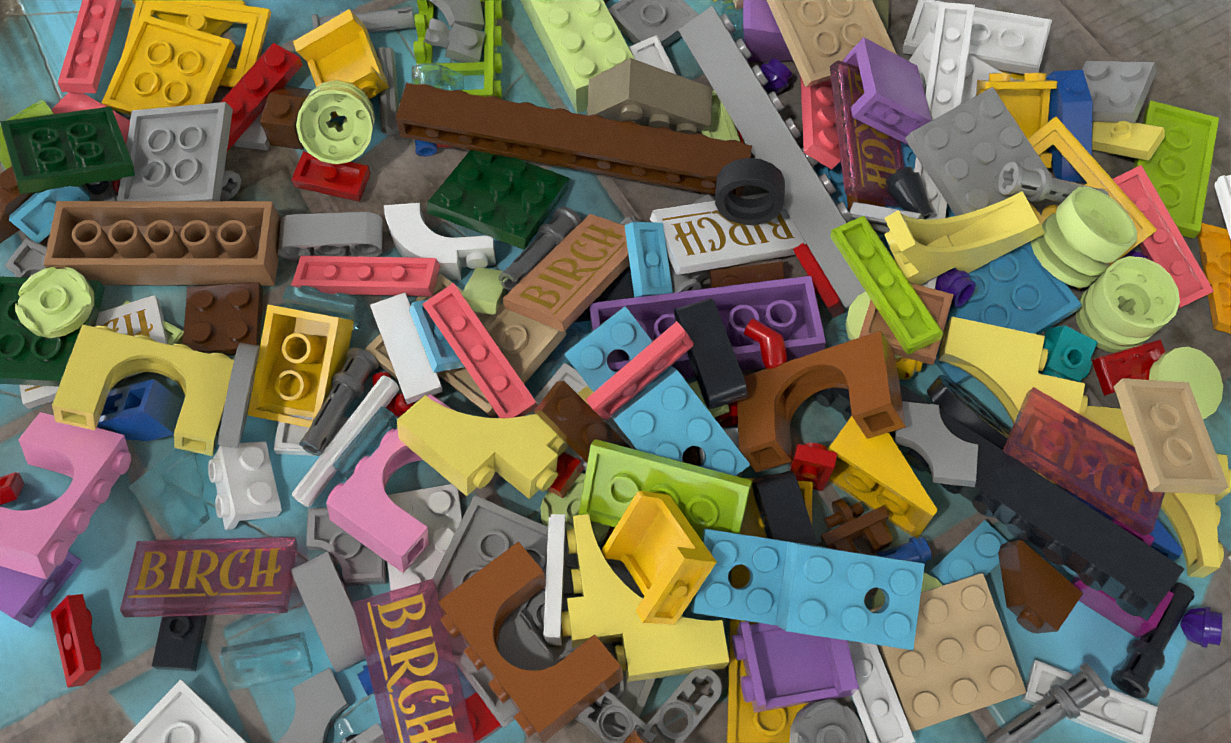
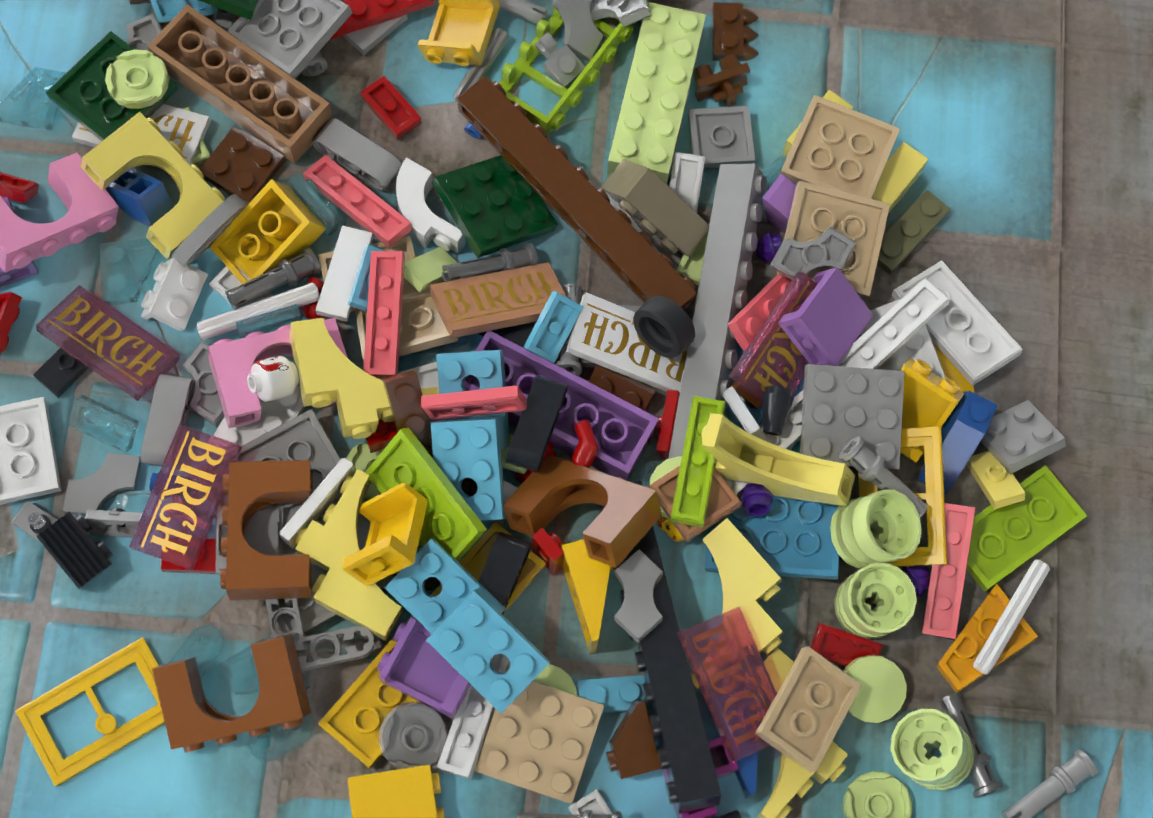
camera: 30 degrees right, 5 degrees up
(281, 116) = (396, 39): reddish brown slope -> none
(328, 139) = (405, 78): yellowish green wheel -> none
(417, 488) = (273, 378): none -> white head
(437, 76) = (511, 81): clear light blue plate -> none
(837, 34) = (828, 250): none -> light grey tile
(870, 526) = (560, 620): reddish brown hips -> none
(914, 550) = (568, 658): blue pin -> none
(968, 410) = (691, 590): black piece -> none
(1067, 353) = (803, 615): teal brick -> none

